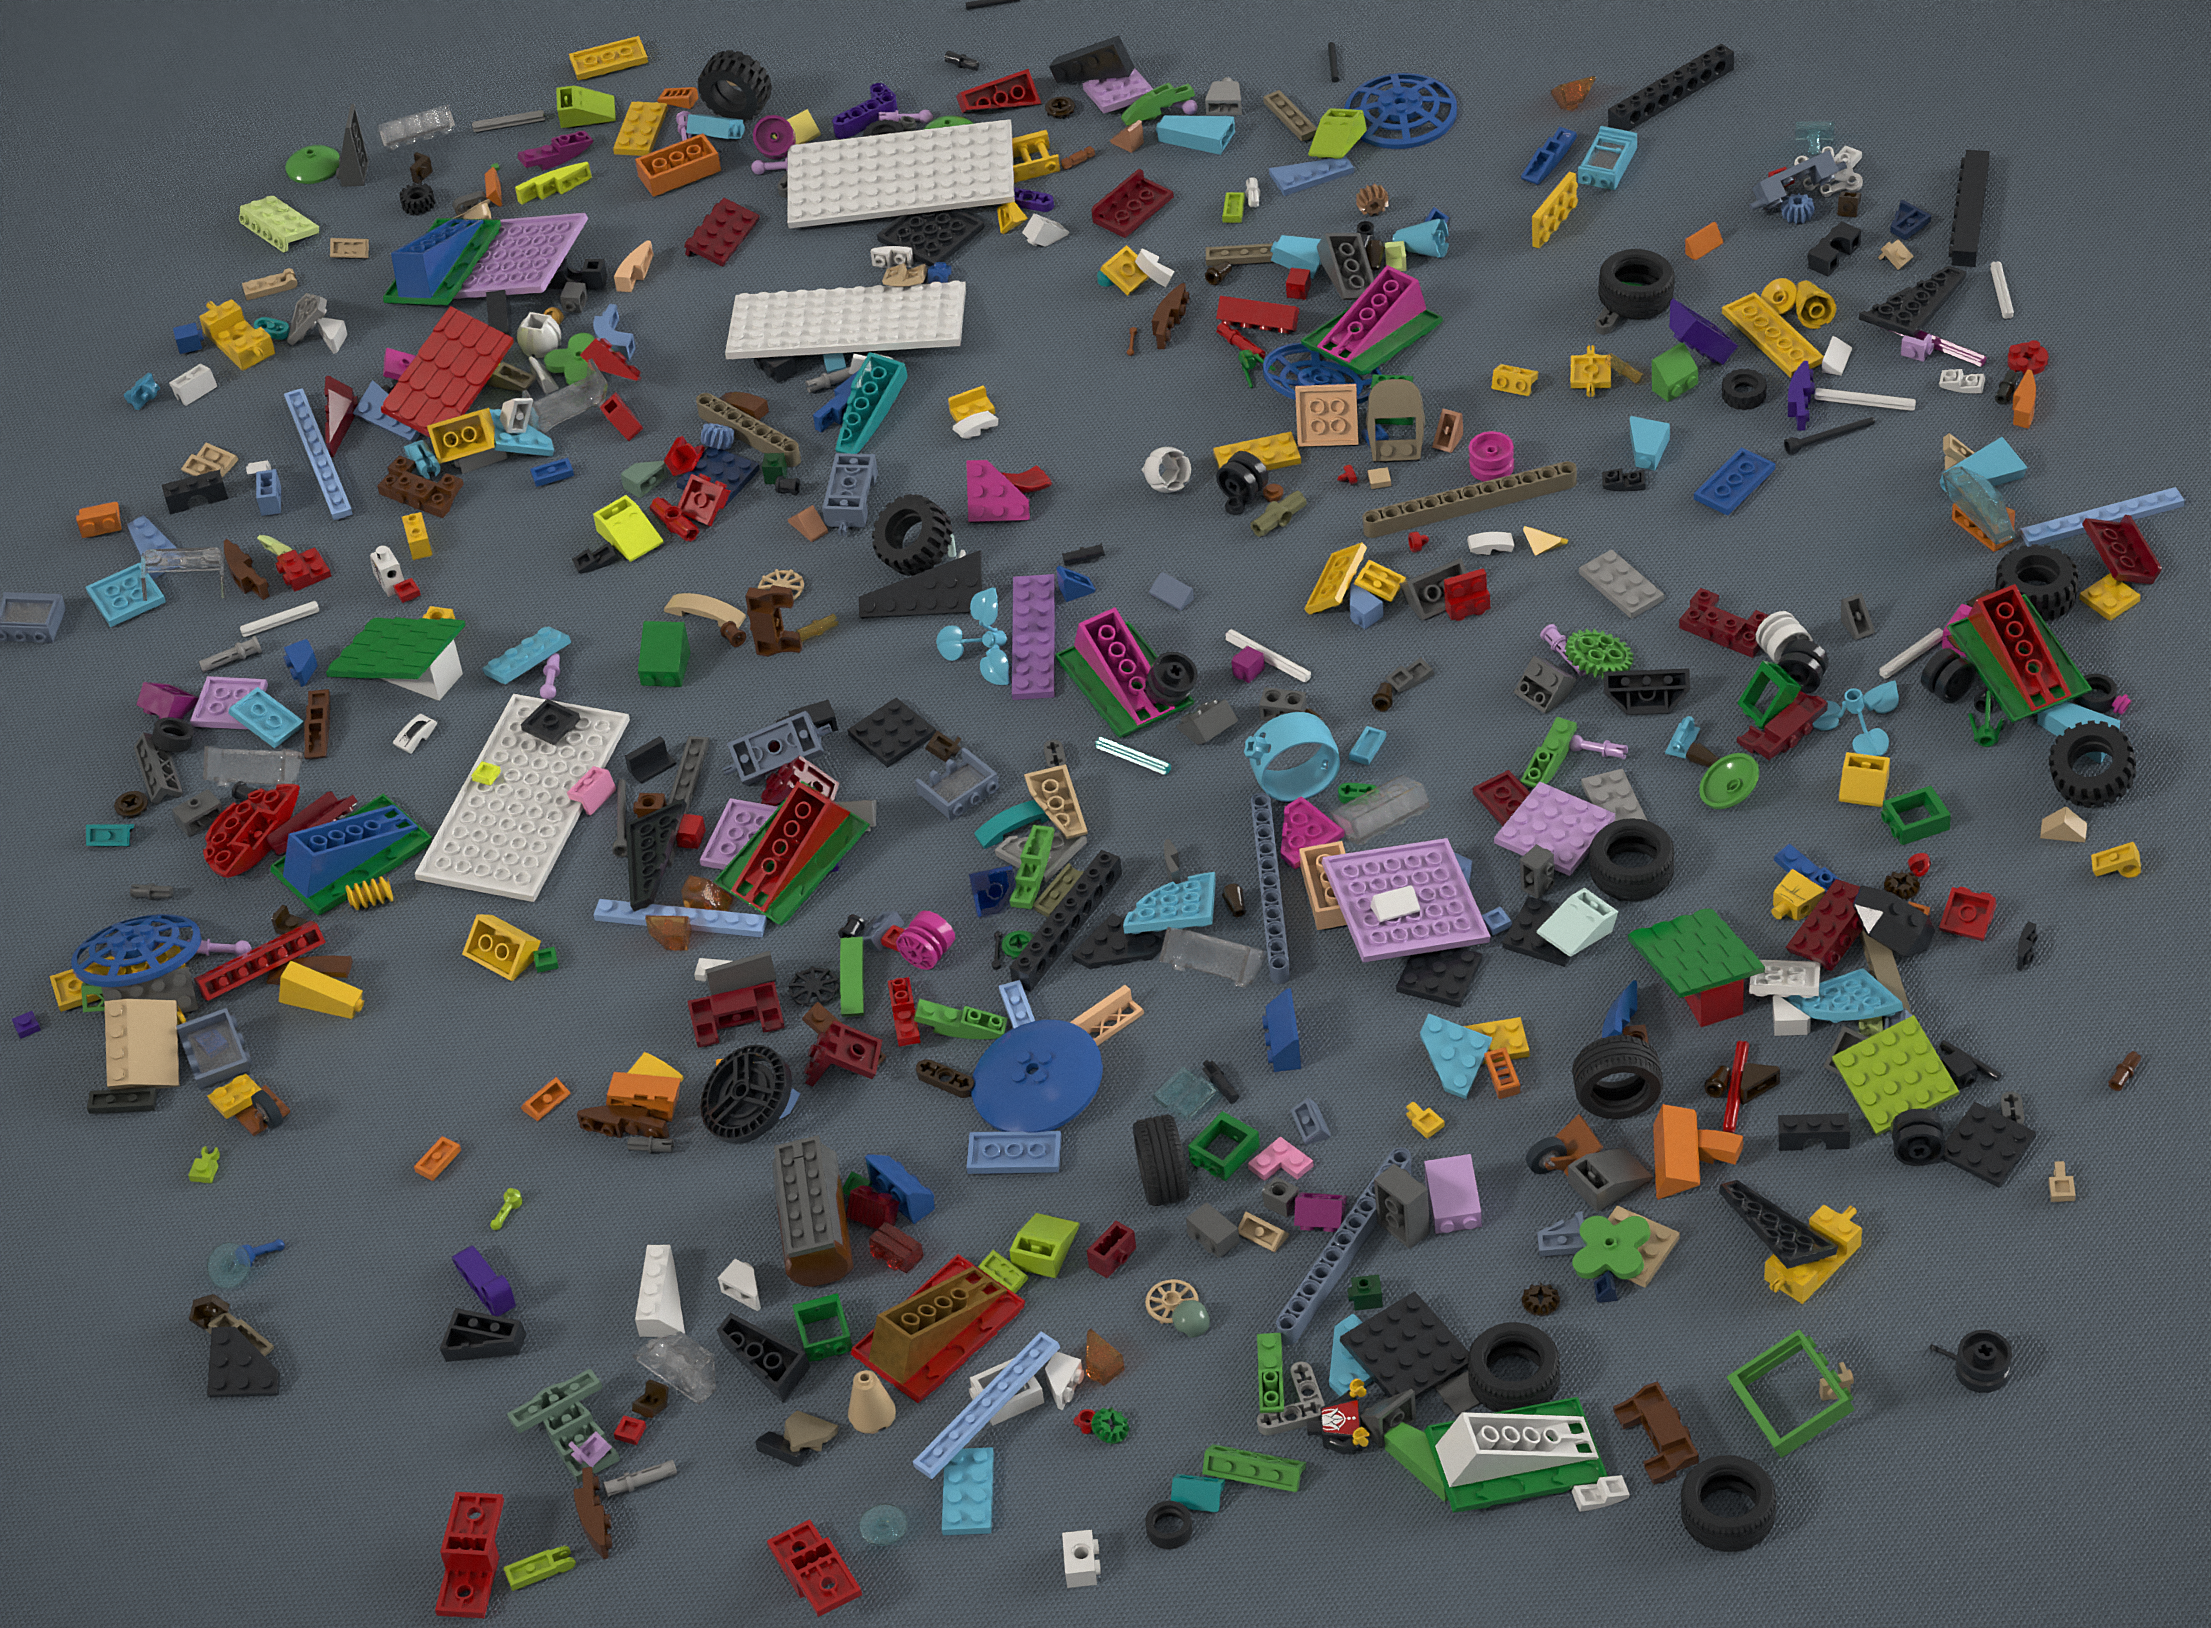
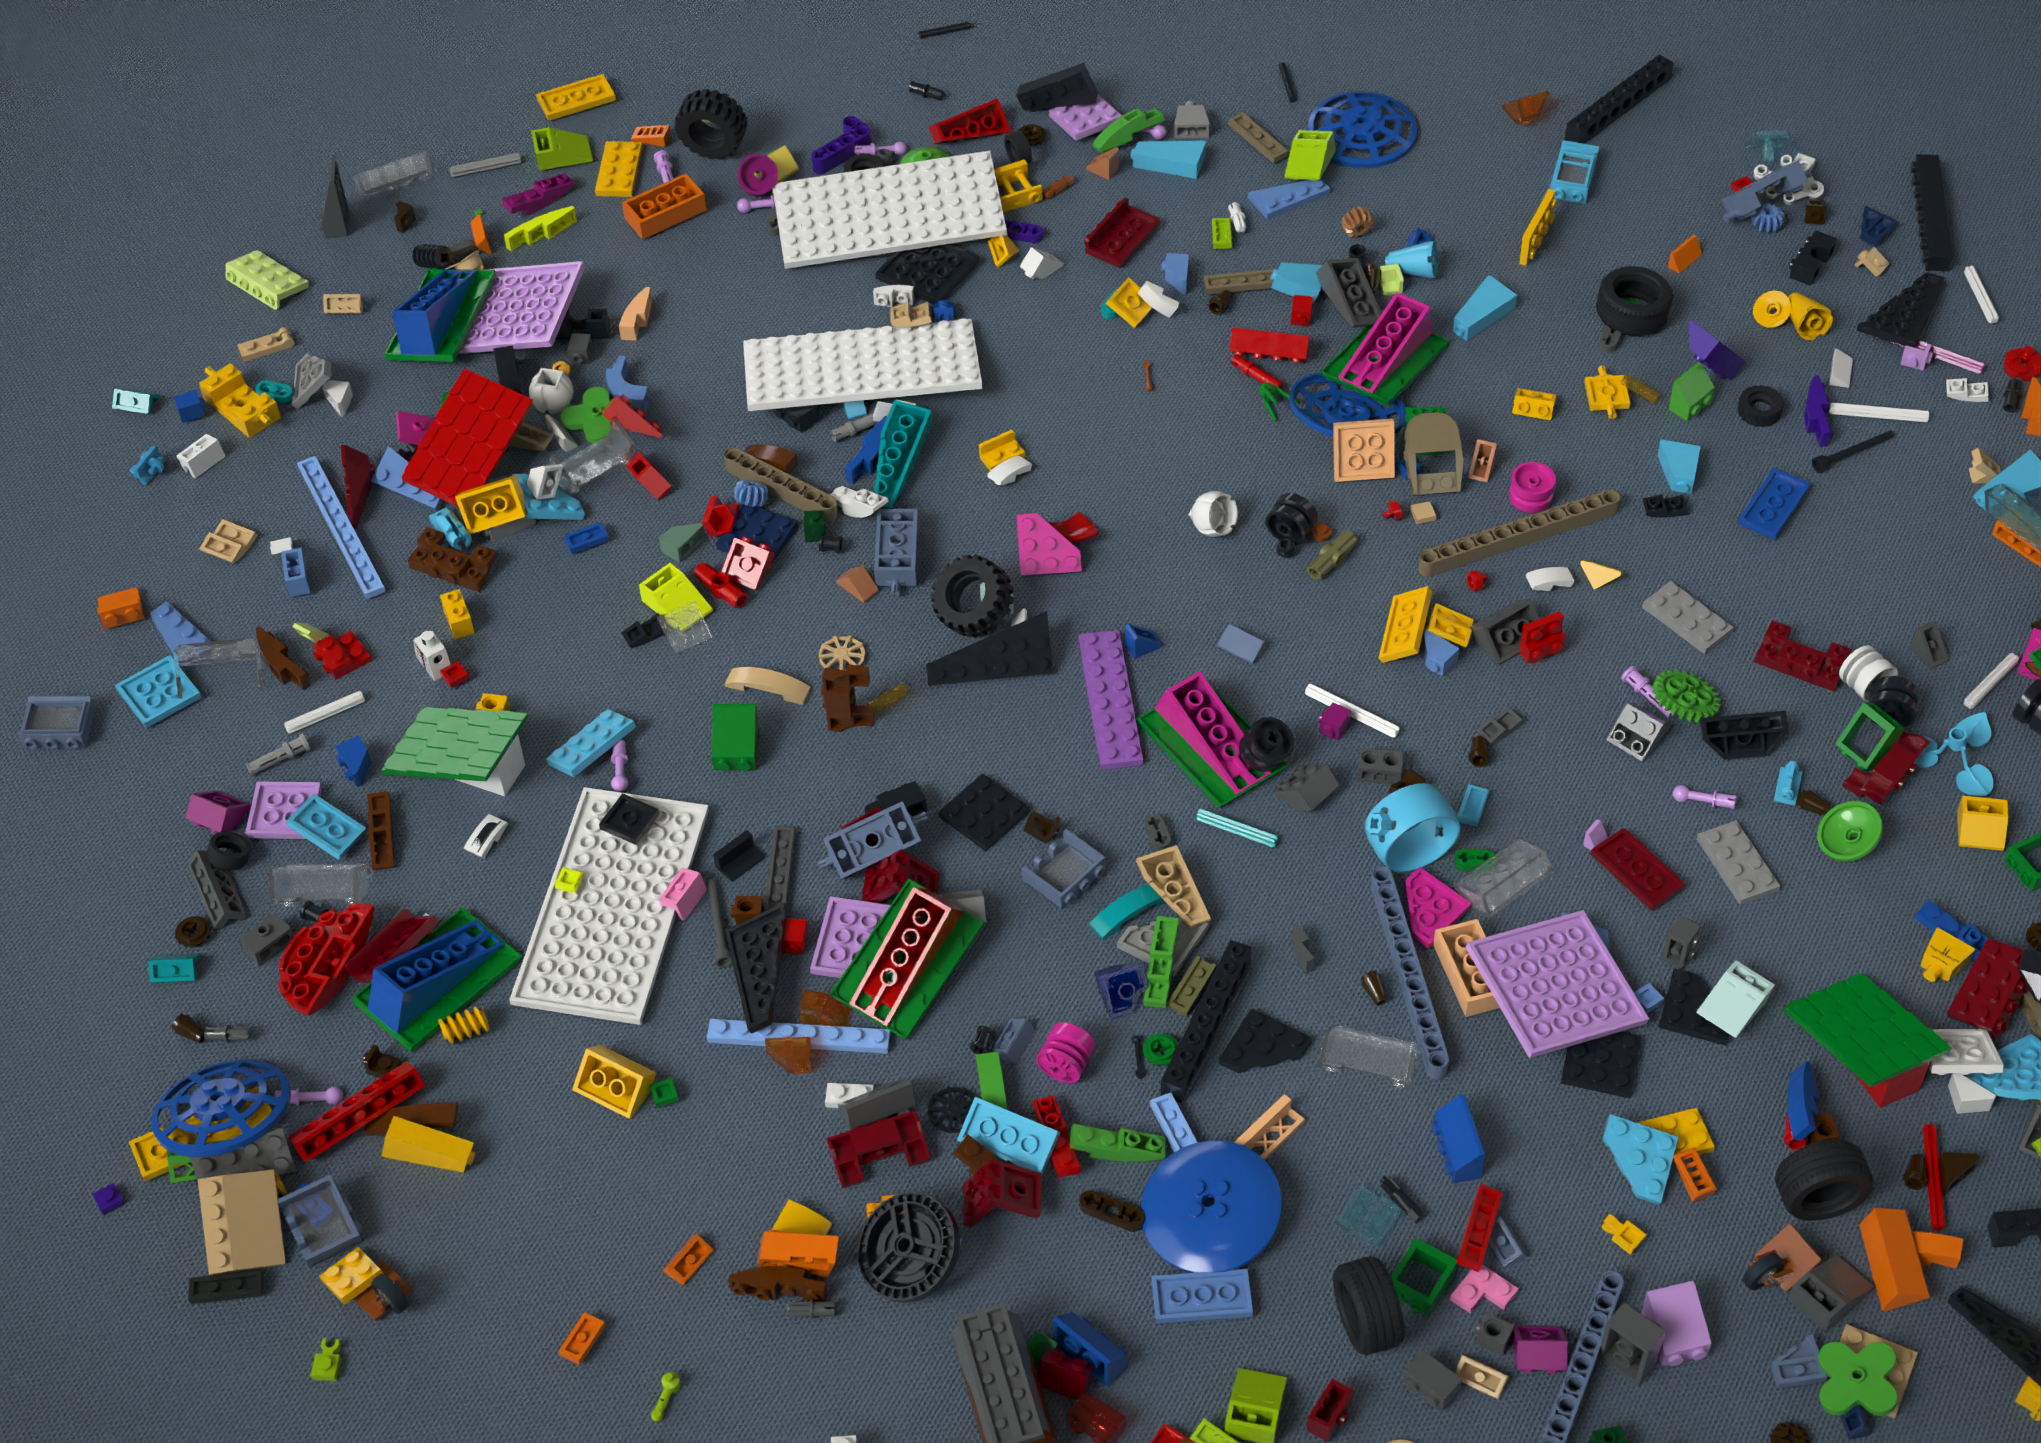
camera: 10 degrees left, 5 degrees up
(116, 885) = (187, 1027): none -> dark brown cone
(135, 332) = (133, 400): none -> panel
(207, 484) = (231, 566): black arch -> none
(312, 164) = (293, 215): bright green dish -> none
(417, 198) = (401, 242): black tyre -> none
(441, 205) = (432, 256): none -> black piece
(632, 556) = (685, 628): none -> clear plate
(715, 126) = (695, 165): medium azure brick -> none
(721, 232) = (718, 274): dark red bracket -> none
(733, 633) = (801, 709): reddish brown bush -> none
(819, 447) = (858, 503): none -> white slope
(860, 1006) = (1010, 1135): none -> medium azure plate
(890, 937) = (1029, 1048): red plate -> none
(985, 609) = (1068, 677): medium azure plant -> none
(1041, 117) = (1017, 147): none -> black tyre
(1083, 554) = (1144, 607): black pin -> none
(1169, 313) = (1180, 347): reddish brown slope -> none
(1175, 906) = (1318, 999): medium azure plate -> none
(1180, 241) = (1176, 270): none -> medium blue slope
(1273, 451) = (1313, 485): yellow plate -> none
(1284, 1105) = (1479, 1227): none -> red hinge
(1395, 903) = (1551, 991): white slope -> none
(1479, 774) = (1595, 835): none -> lavender slope
(1484, 286) = (1484, 308): none -> medium azure slope
(1549, 156) = (1516, 171): blue slope -> none
(1551, 753) = (1661, 808): bright green slope -> none
(1555, 823) = (1688, 887): lavender plate -> none
(1632, 836) = (1780, 899): black tyre -> none
(1771, 333) = (1774, 348): yellow plate -> none

